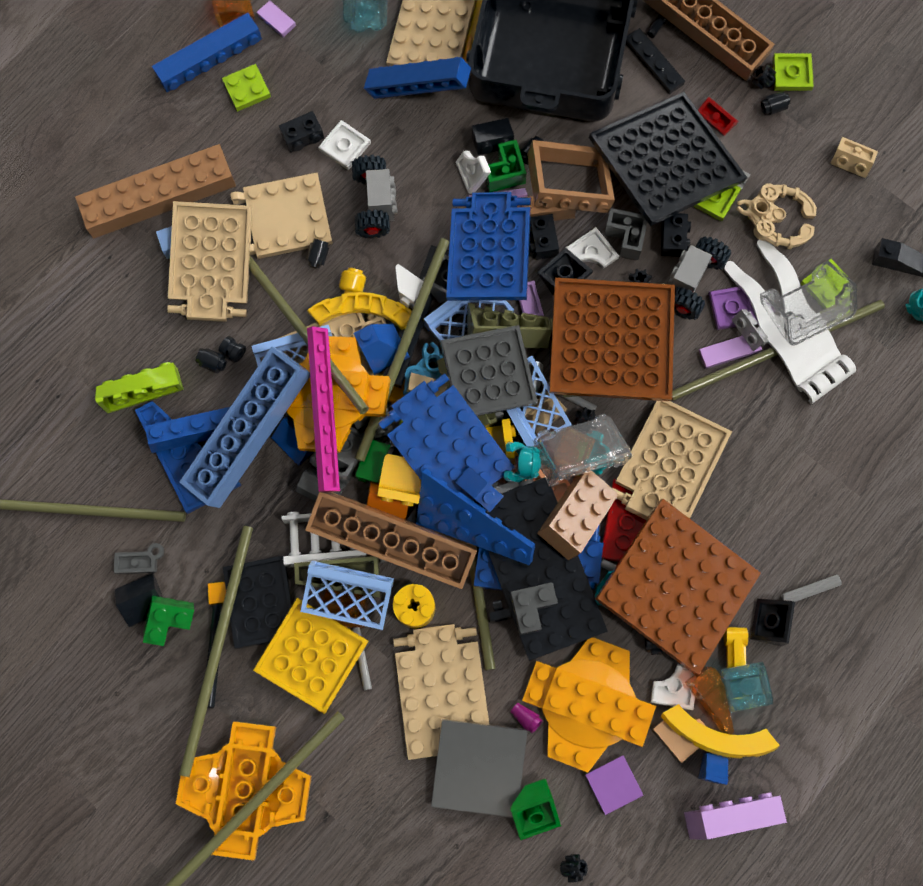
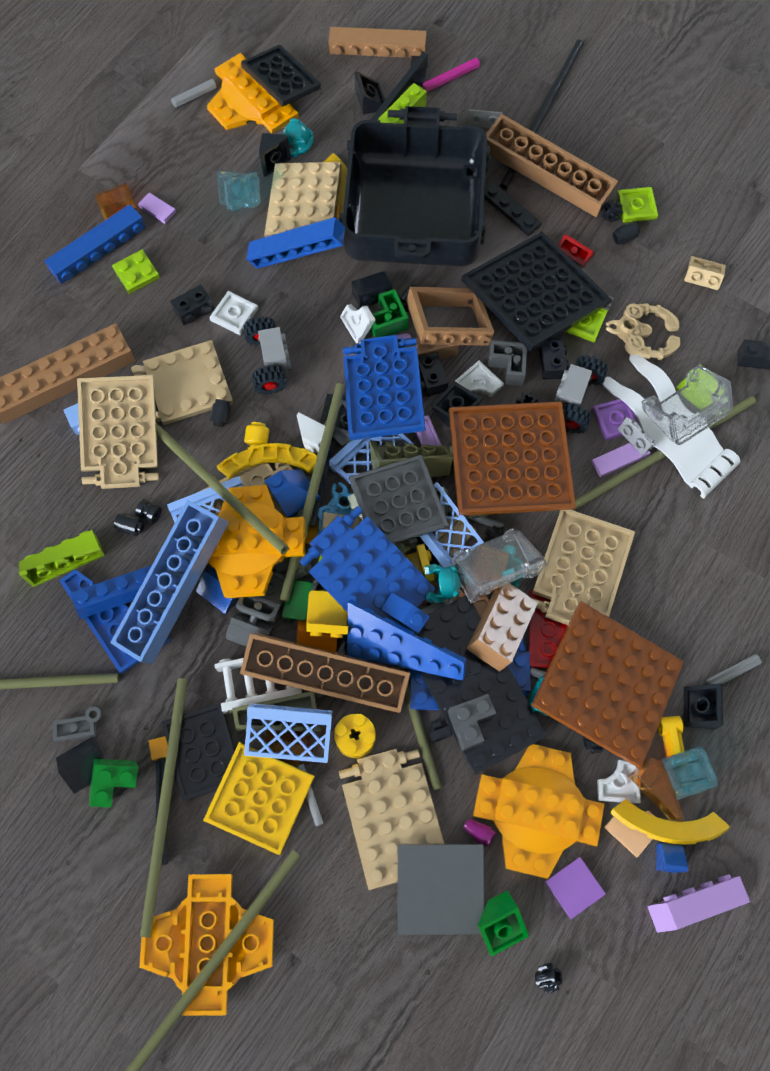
camera: 10 degrees left, 5 degrees down
(323, 409) = (244, 555): dark pink plate -> none

